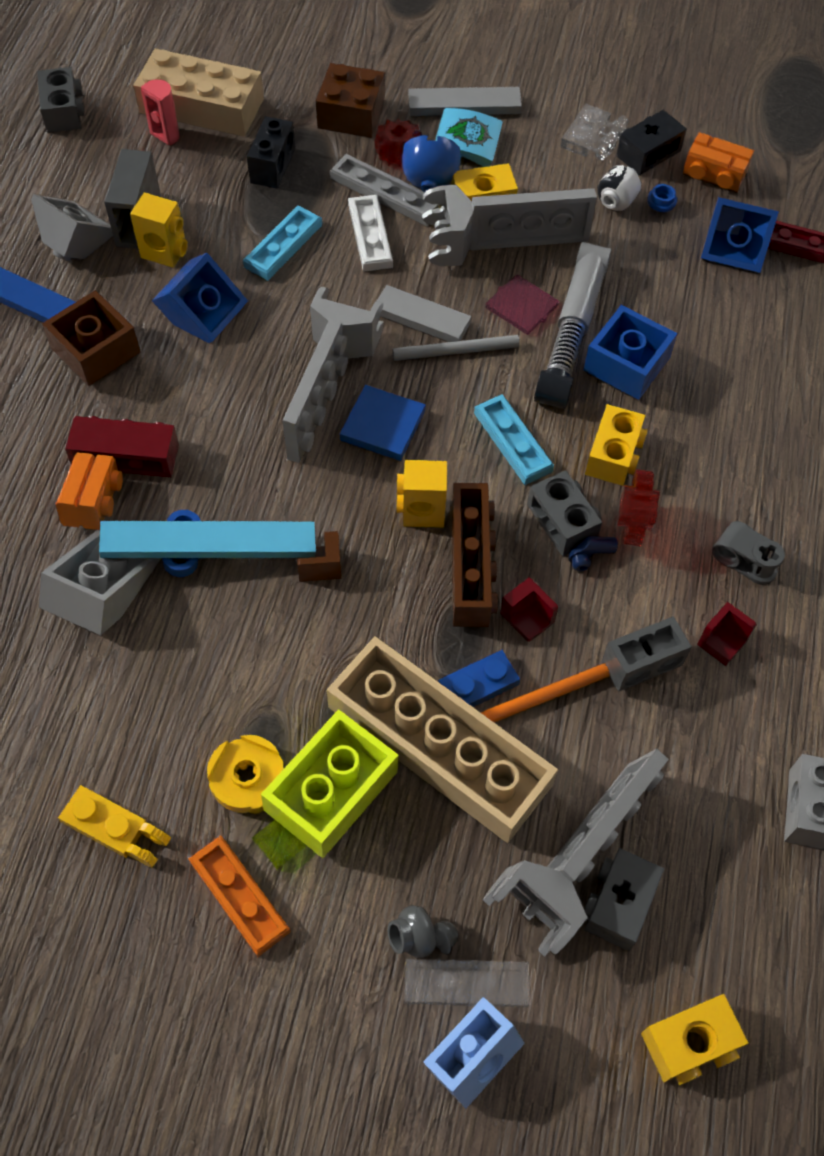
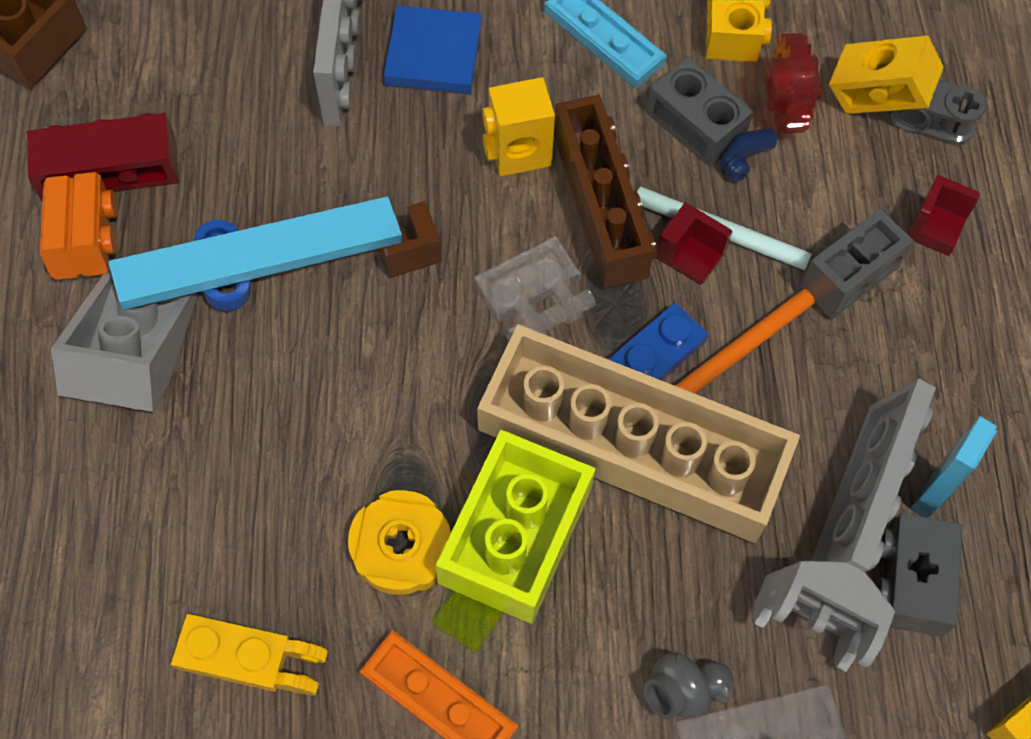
camera: 15 degrees left, 5 degrees up
(401, 606) = (530, 278): none -> clear plate
(564, 608) = (740, 235): none -> light aqua bar
(666, 823) = (955, 467): none -> medium azure tile
(713, 518) = (886, 75): none -> yellow brick

